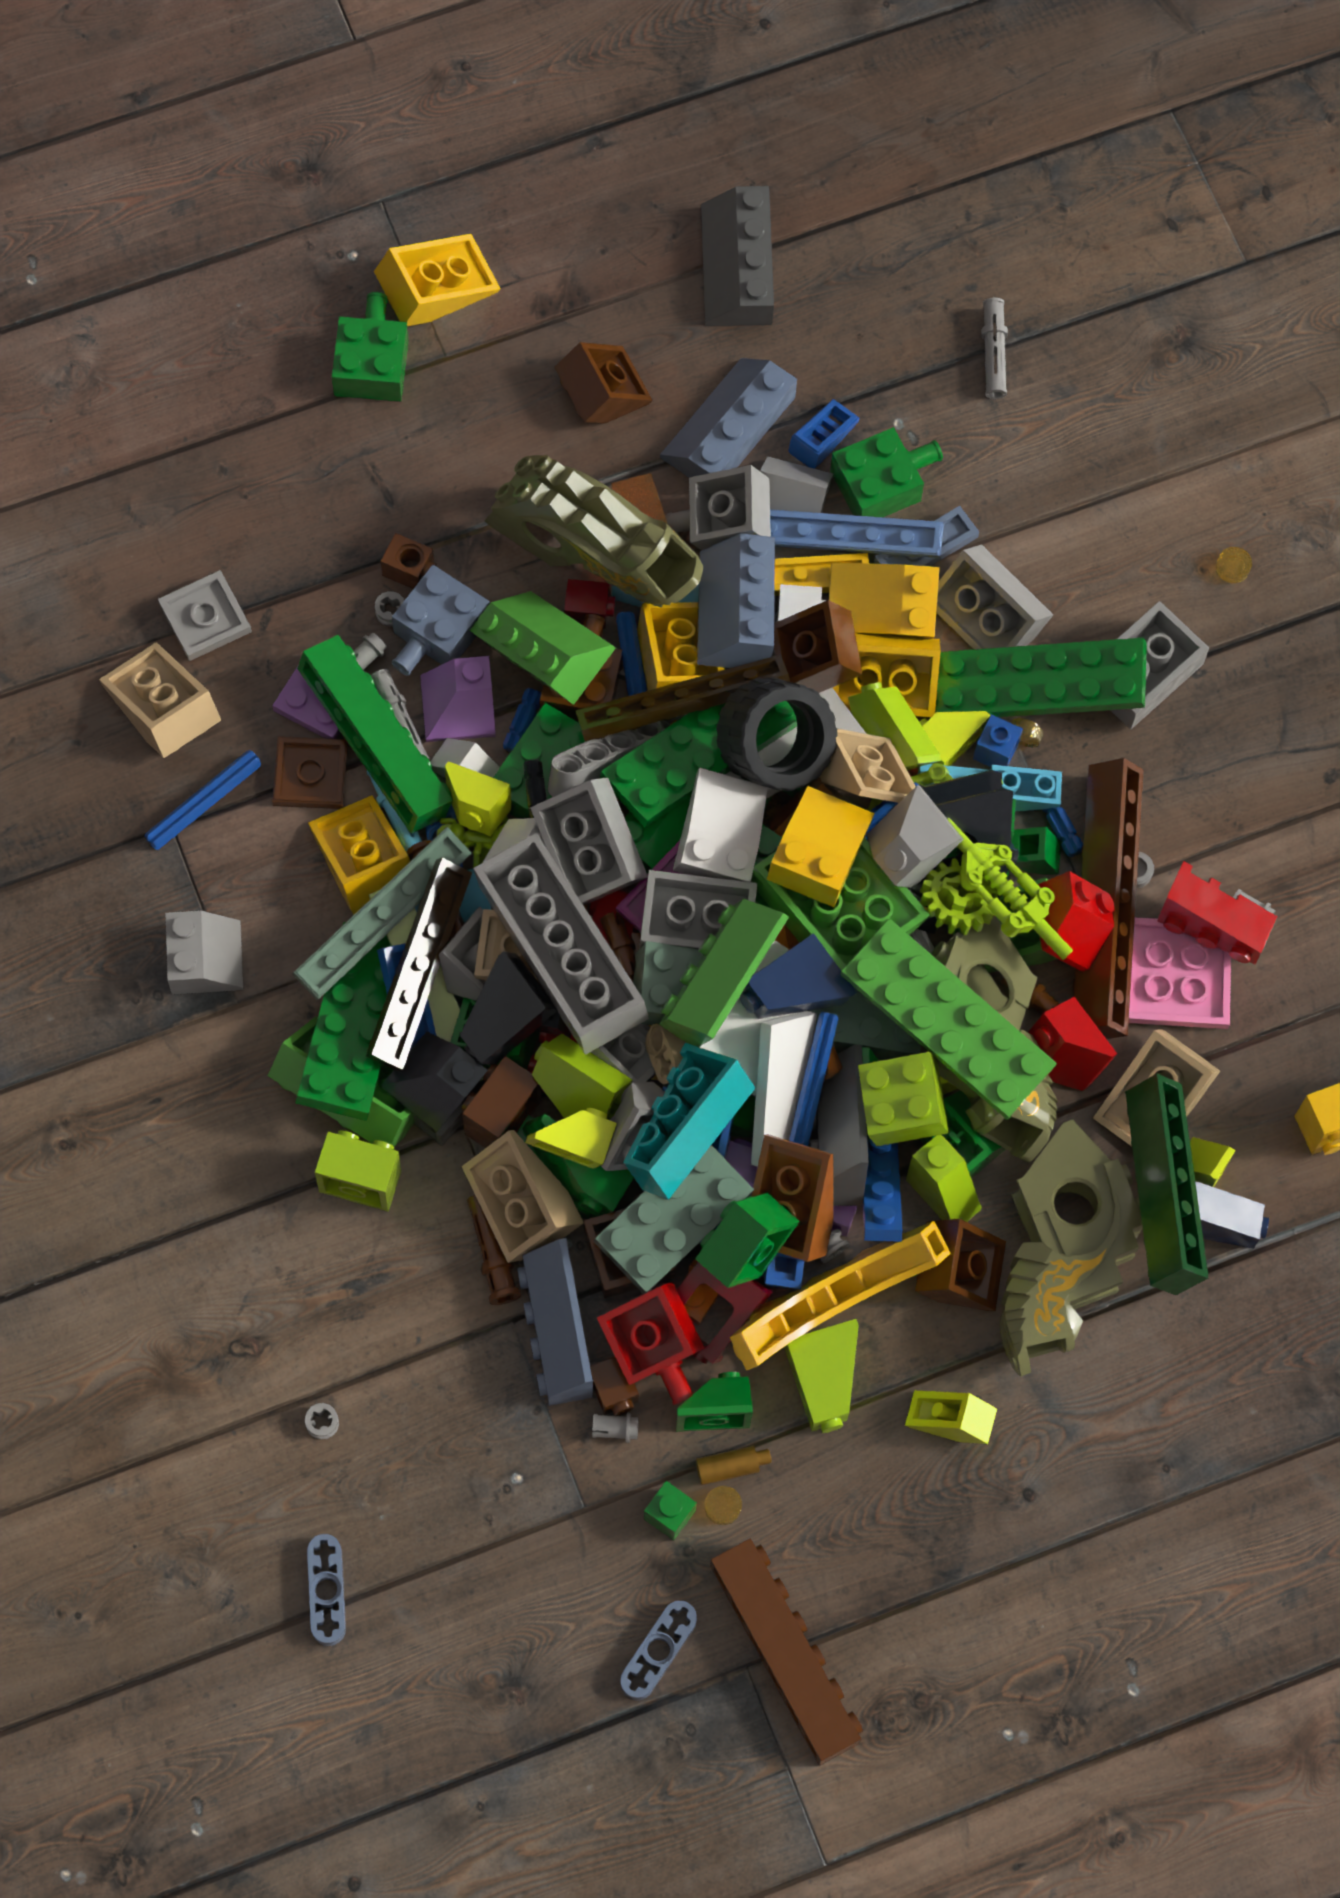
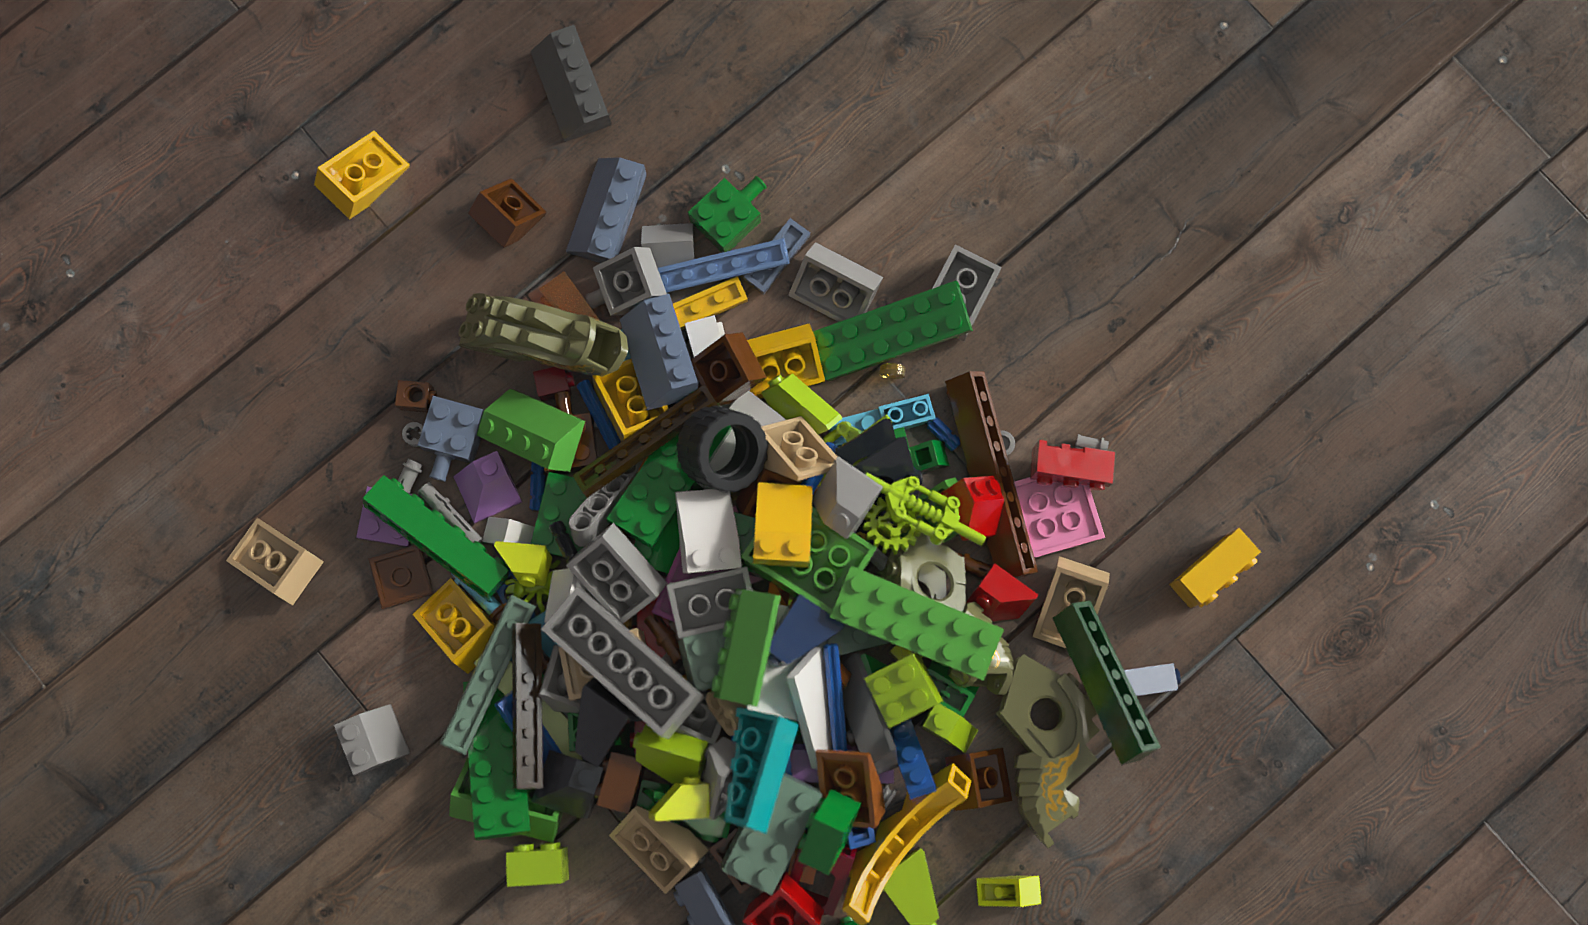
camera: 15 degrees left, 10 degrees up
(203, 799) = (331, 624): blue axle -> none
(204, 615) = (284, 486): light grey plate -> none
(370, 354) = (333, 248): green brick -> none
(495, 1264) = (662, 902): reddish brown pin -> none
(812, 451) = (670, 210): blue slope -> none
(887, 597) = (761, 307): yellow slope -> none
(954, 732) = (841, 390): neon yellow slope -> none
(994, 313) = (765, 63): light grey pin -> none
(997, 742) = (876, 386): blue brick -> none
(1209, 1160) = (1126, 647): neon yellow slope -> none
(1234, 564) = (995, 193): clear yellow tile -> none

